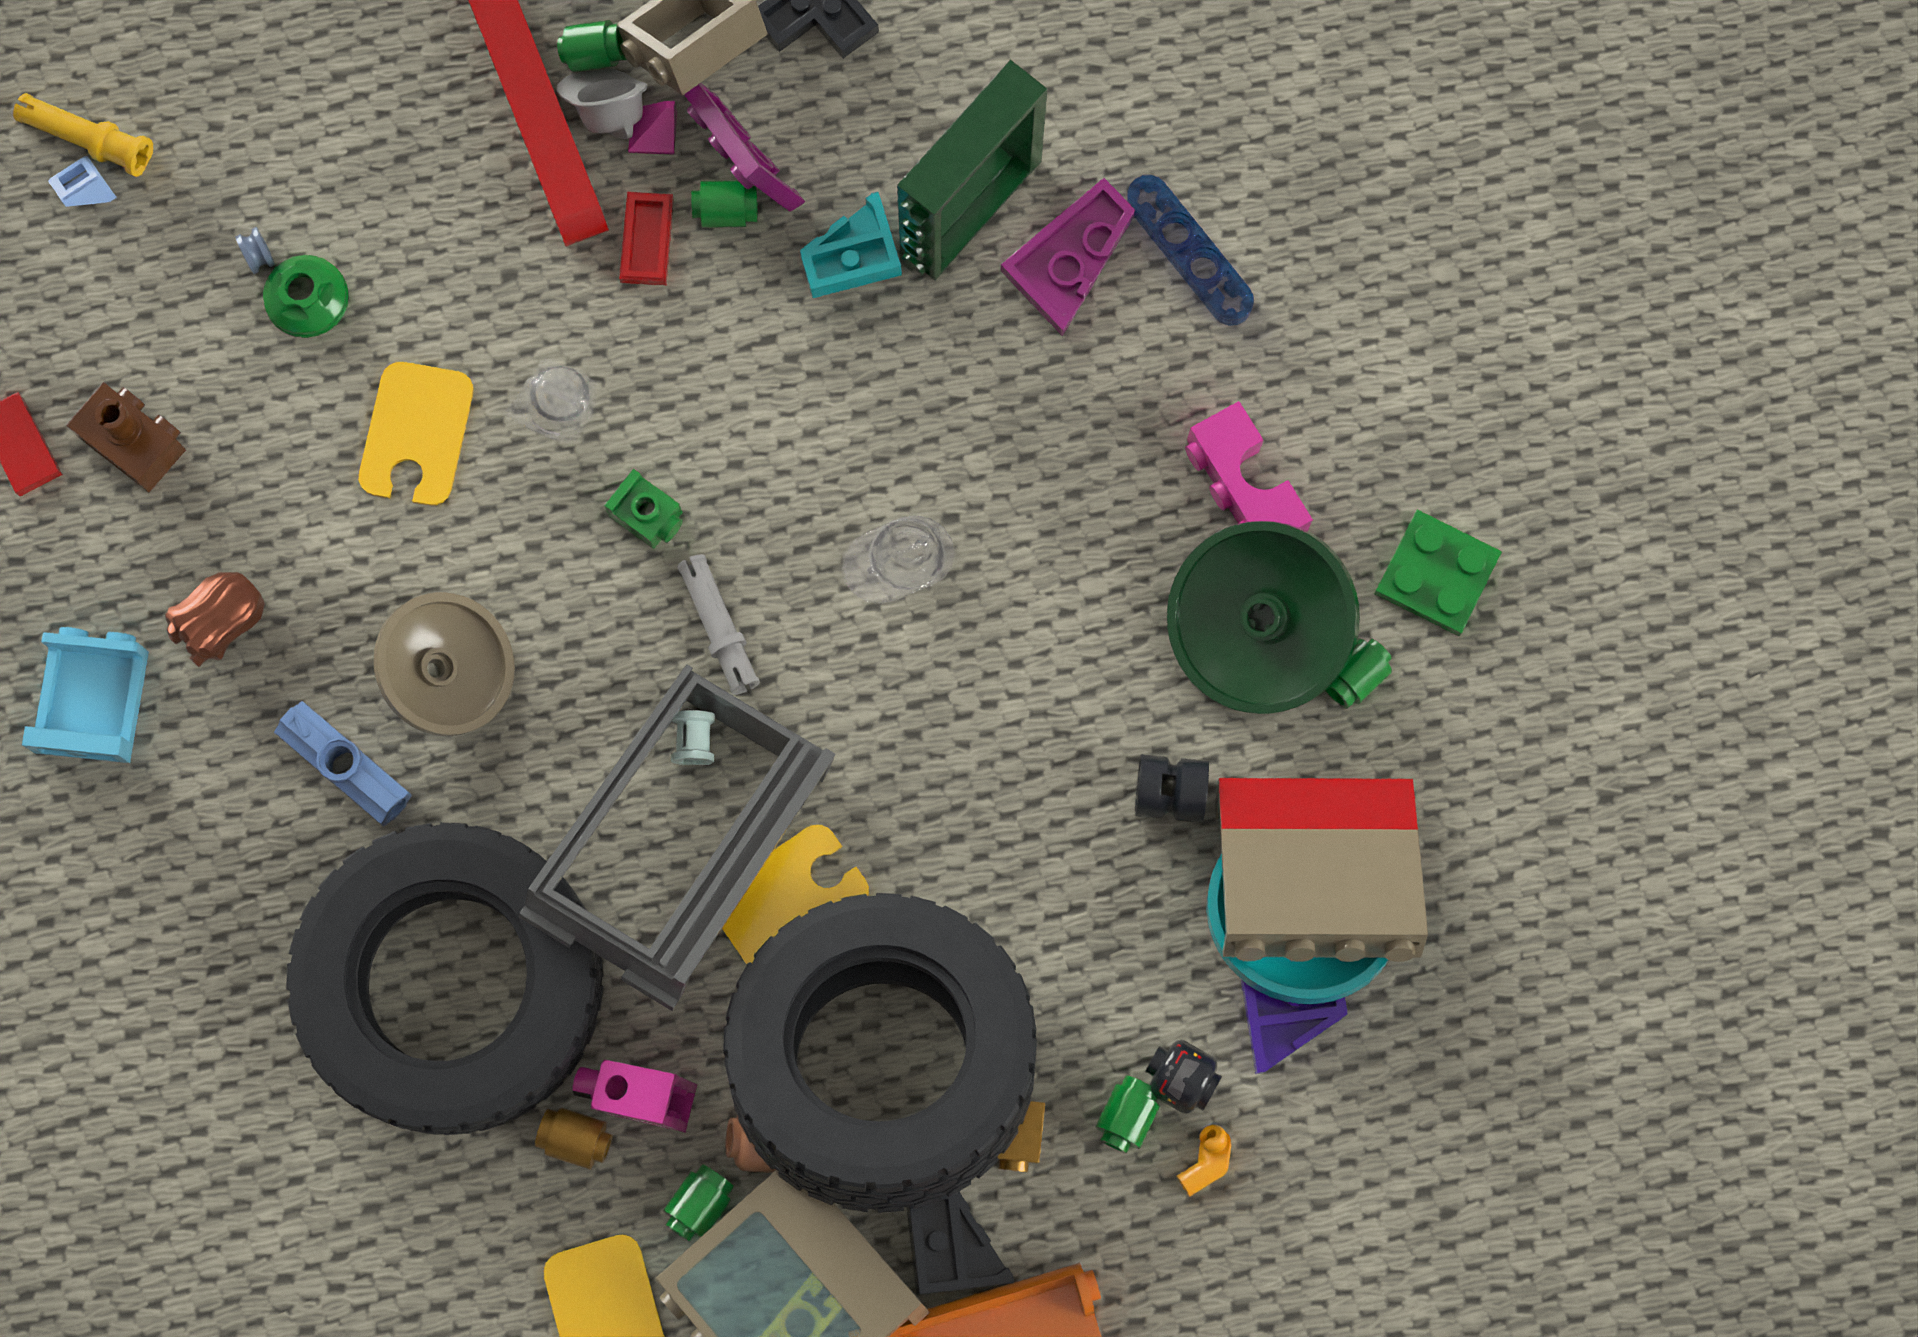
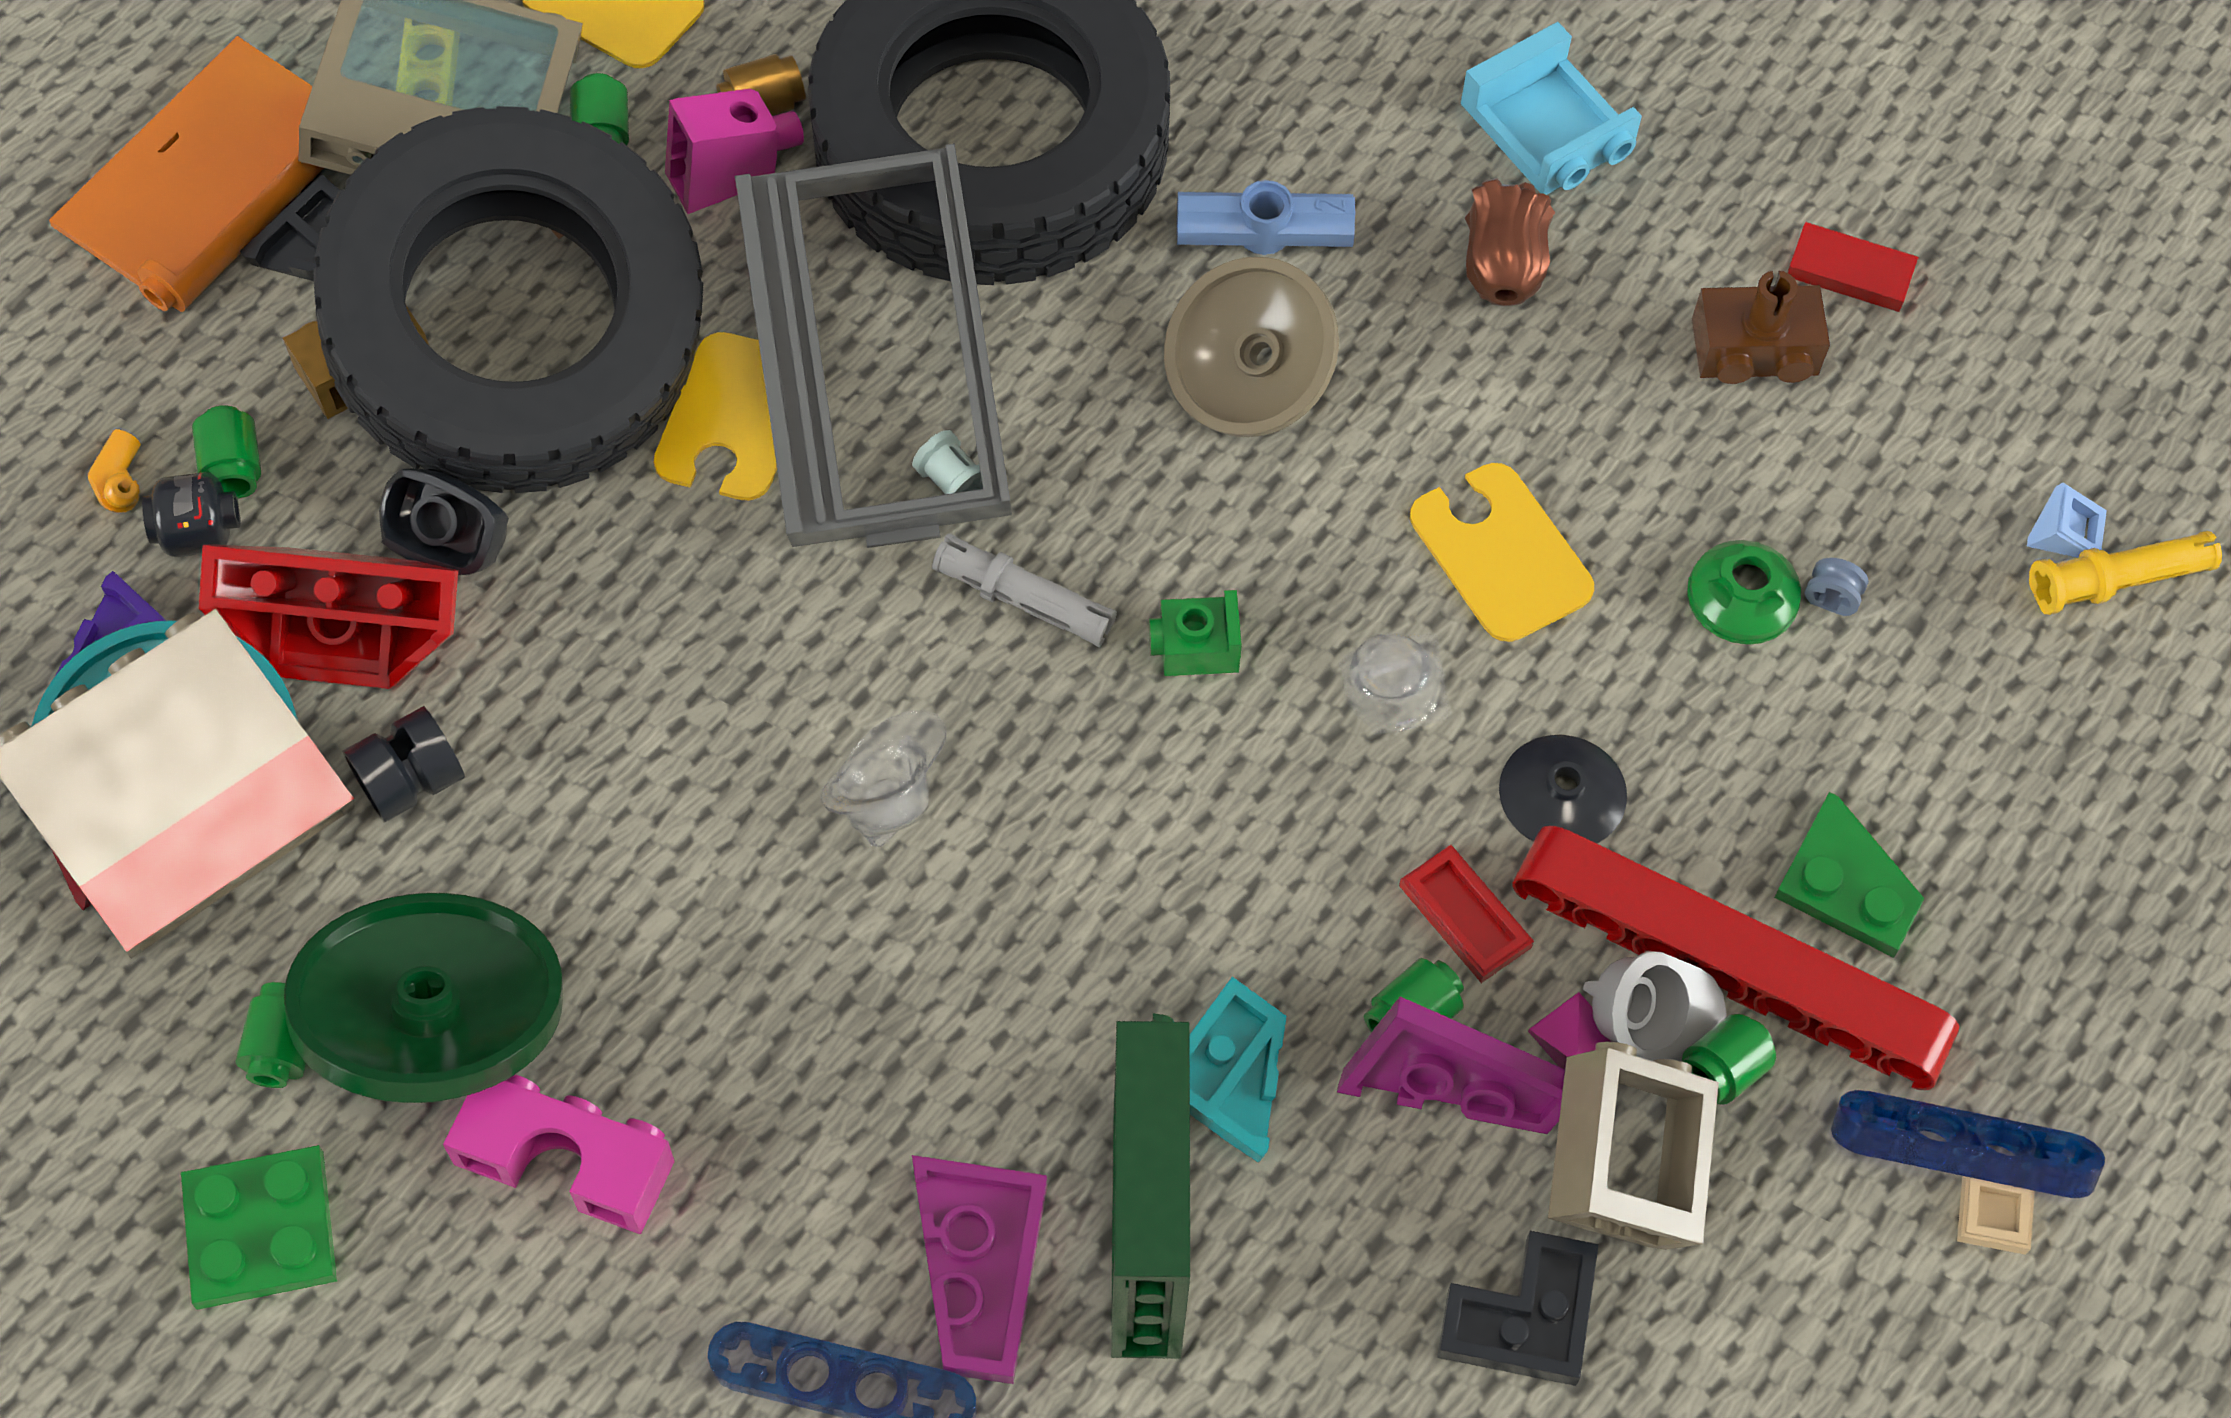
camera: 140 degrees right, 15 degrees down
(424, 93) = (1850, 881): none -> green wing
(528, 285) = (1536, 801): none -> black dish
(1035, 943) = (441, 521): none -> black piece
(1138, 931) = (331, 611): none -> red wedge

